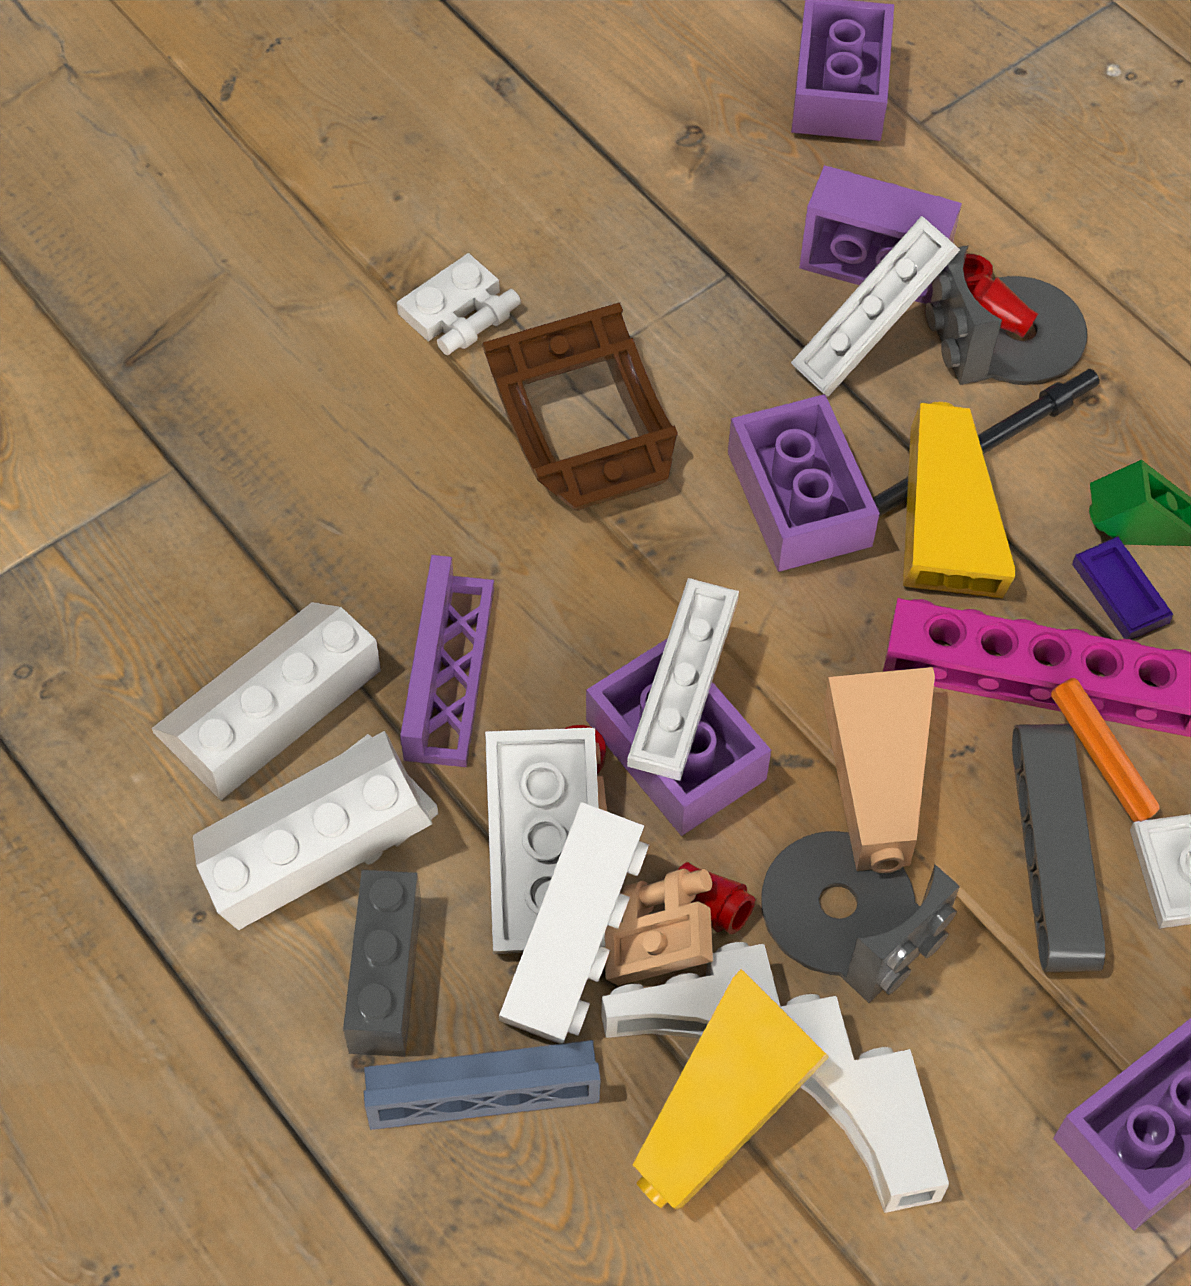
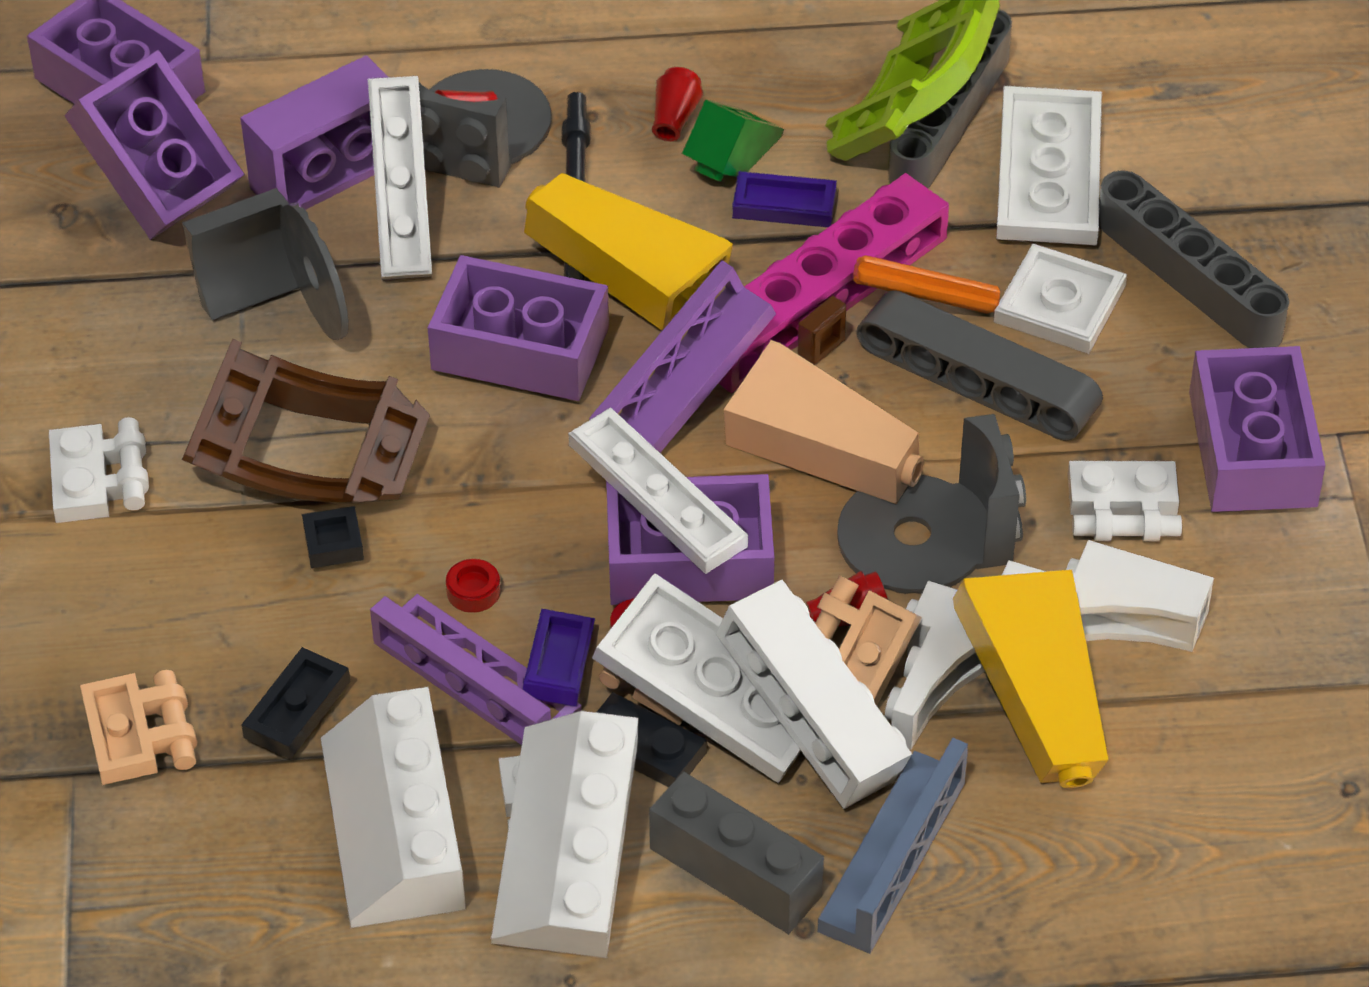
camera: 55 degrees left, 10 degrees down
(225, 468) = (120, 729): none -> light nougat plate
(326, 565) = (295, 703): none -> black plate
(462, 829) = (662, 746): none -> black plate
(503, 490) = (332, 537): none -> black plate
(506, 707) = (558, 657): none -> dark purple tile
(534, 613) = (473, 585): none -> red tile
(721, 265) = (262, 252): none -> dark grey piece
(766, 134) = (154, 144): none -> medium lavender brick
(846, 624) = (691, 366): none -> medium lavender fence
(990, 701) = (822, 330): none -> reddish brown tile
(1018, 1046) = (1124, 499): none -> white plate
(1155, 444) = (675, 101): none -> red cone

